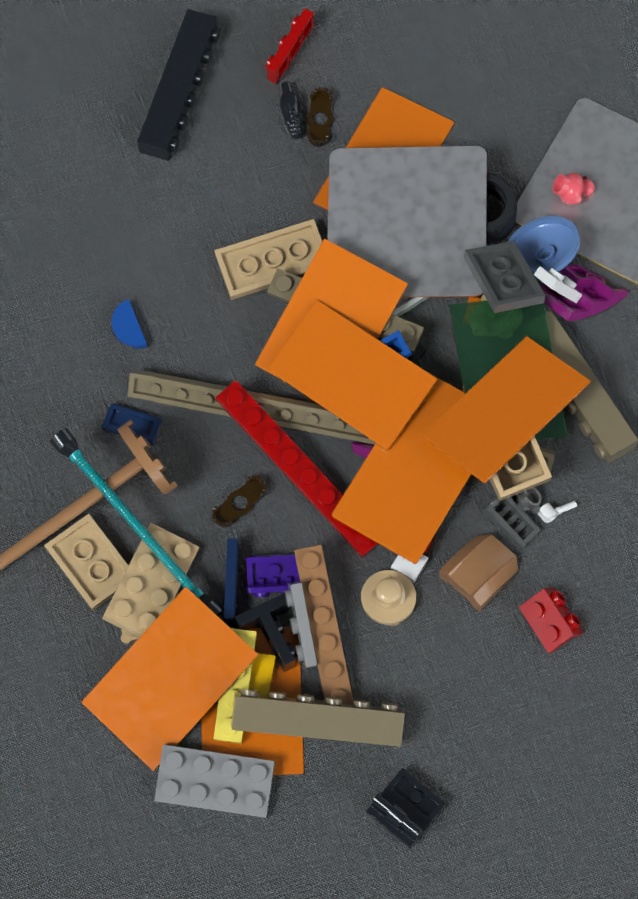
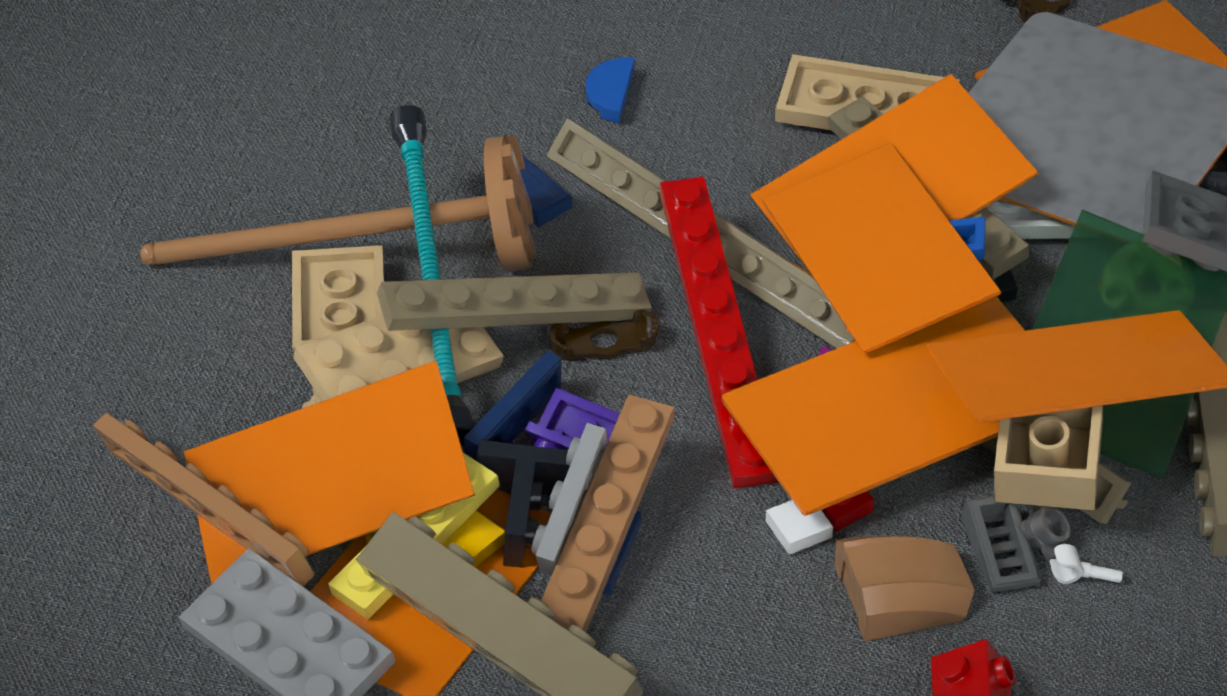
camera: 30 degrees right, 25 degrees down
(130, 730) = (215, 506): none -> medium nougat plate
(189, 517) = (511, 300): none -> dark tan plate
(388, 597) = (733, 546): tan plate -> none

